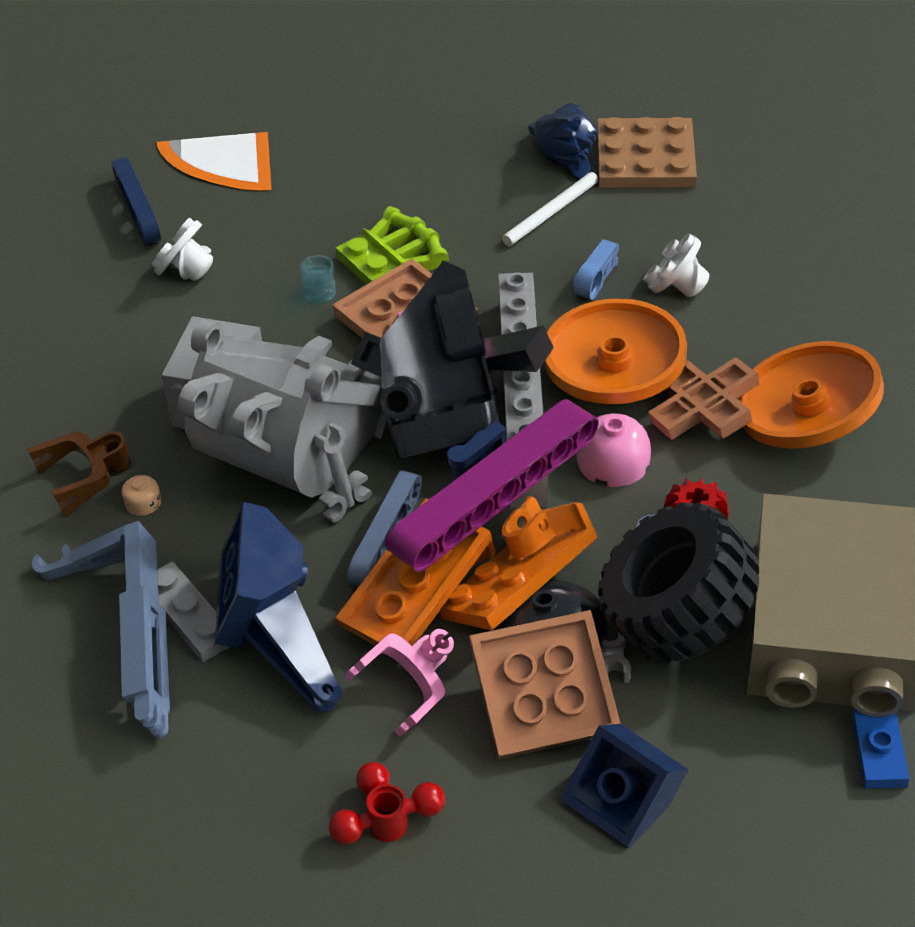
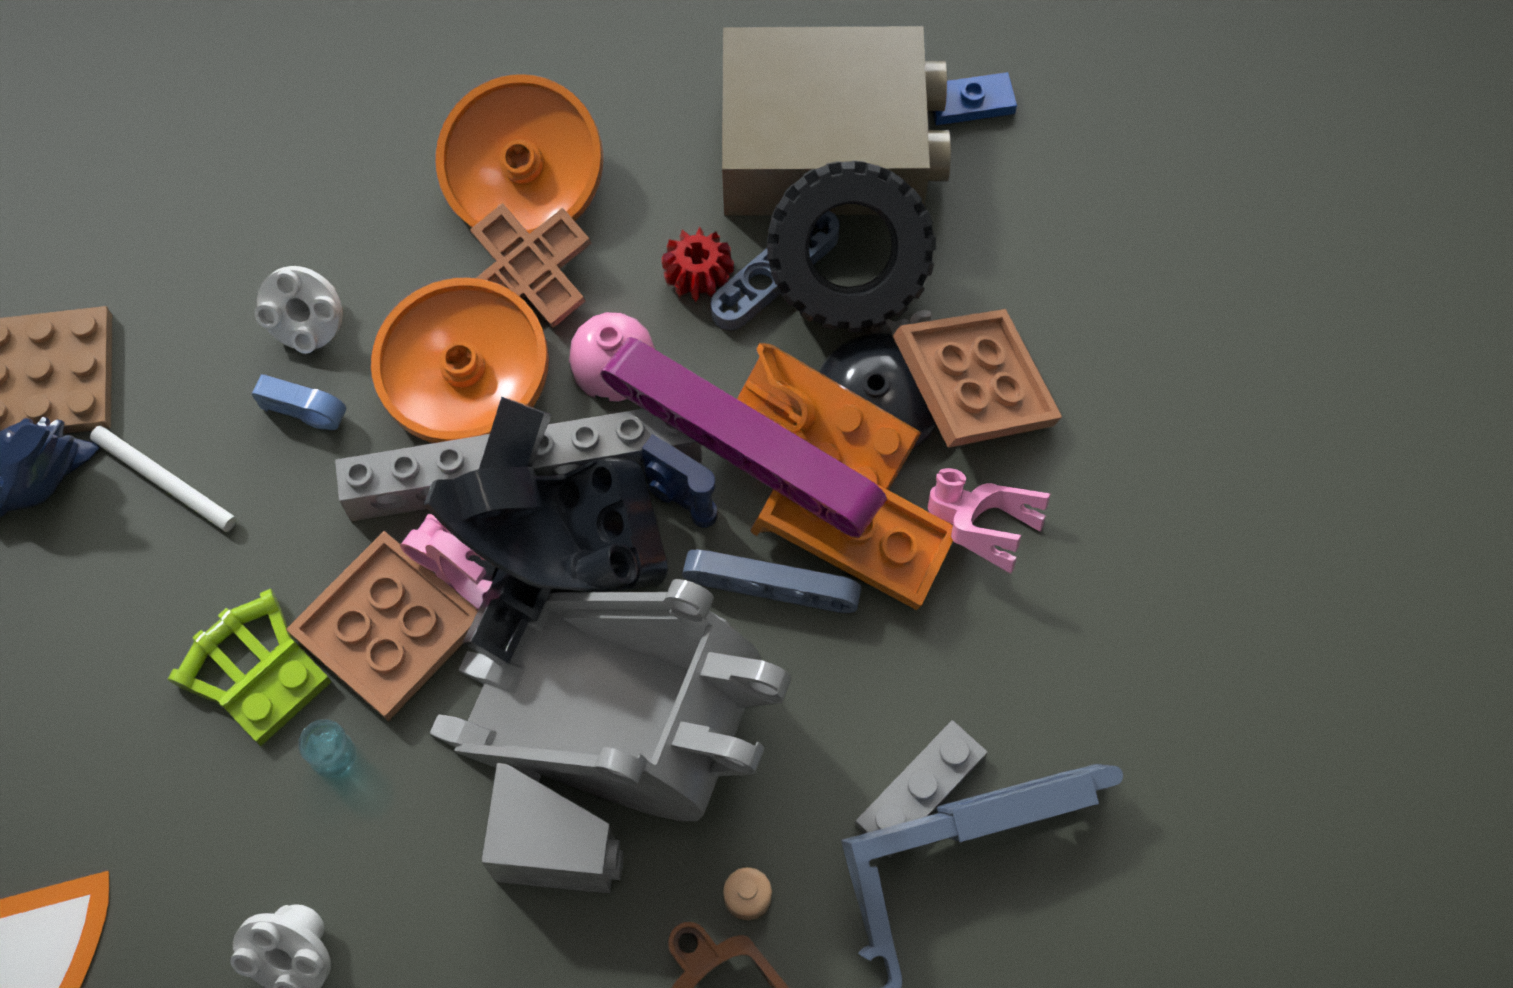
camera: 100 degrees left, 20 degrees up
(260, 604) = (923, 684): dark blue slope -> none
(374, 781) = (1121, 530): red piece -> none
(623, 783) = (1069, 299): dark blue slope -> none

